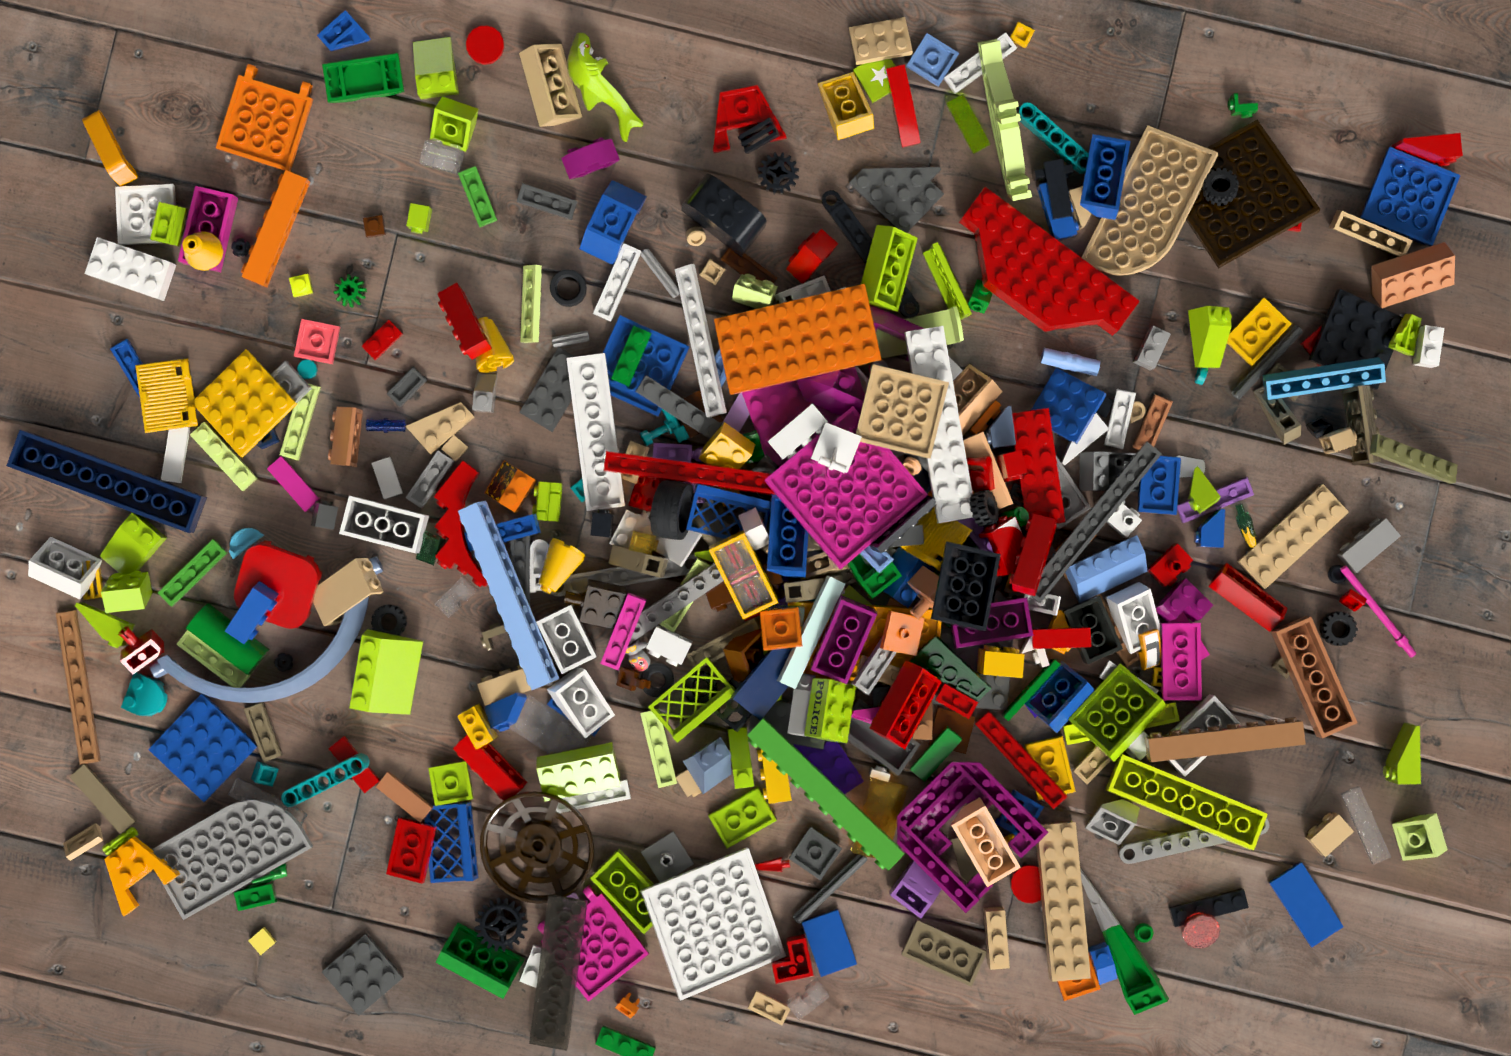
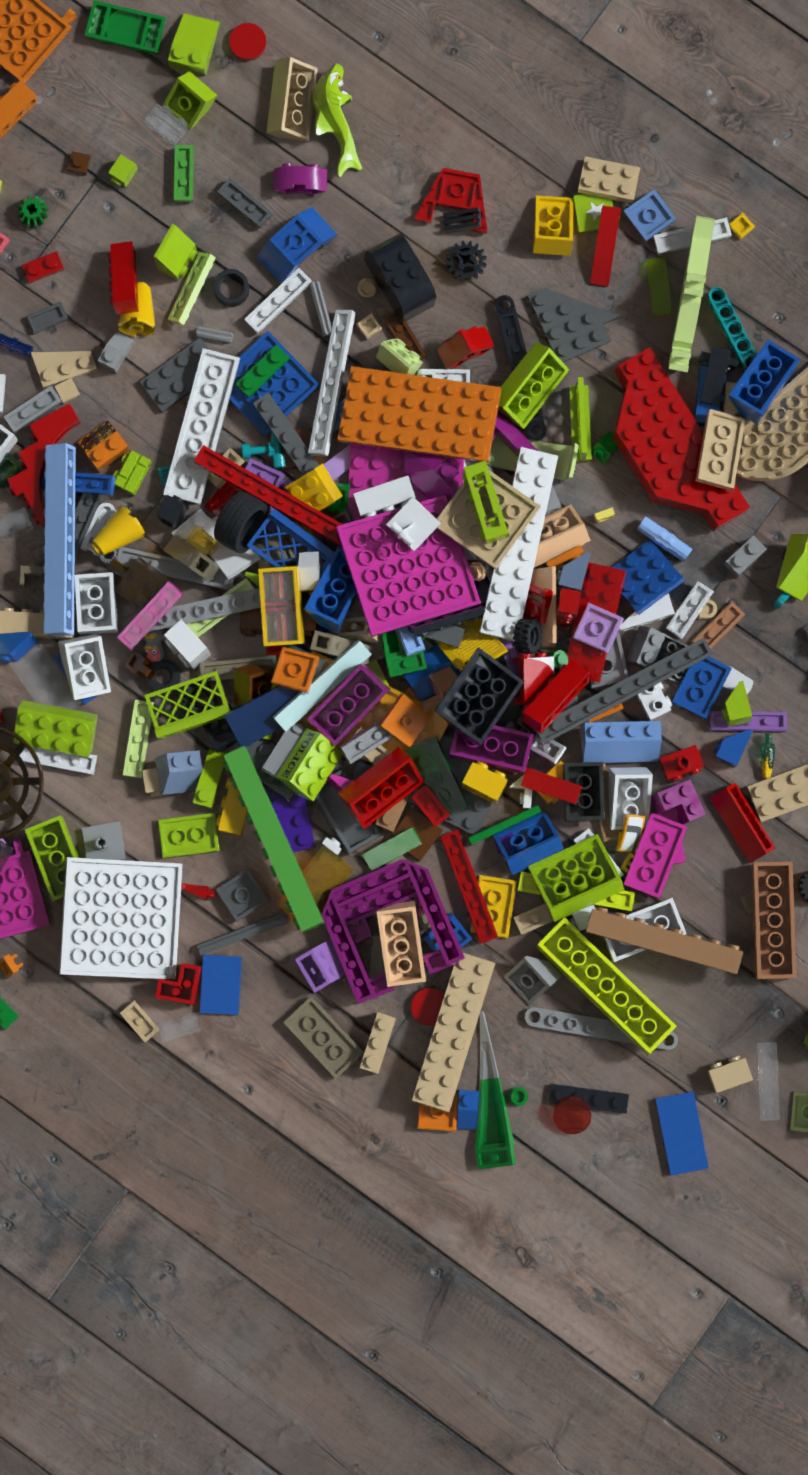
camera: 25 degrees right, 5 degrees down
(503, 278) = (175, 253): none -> lime slope
(876, 375) = (495, 532): none -> lime brick
(1005, 362) = (604, 515): none -> light yellow tile
(1045, 472) = (598, 628): none -> lavender tile
(1091, 258) = (720, 449): none -> tan plate

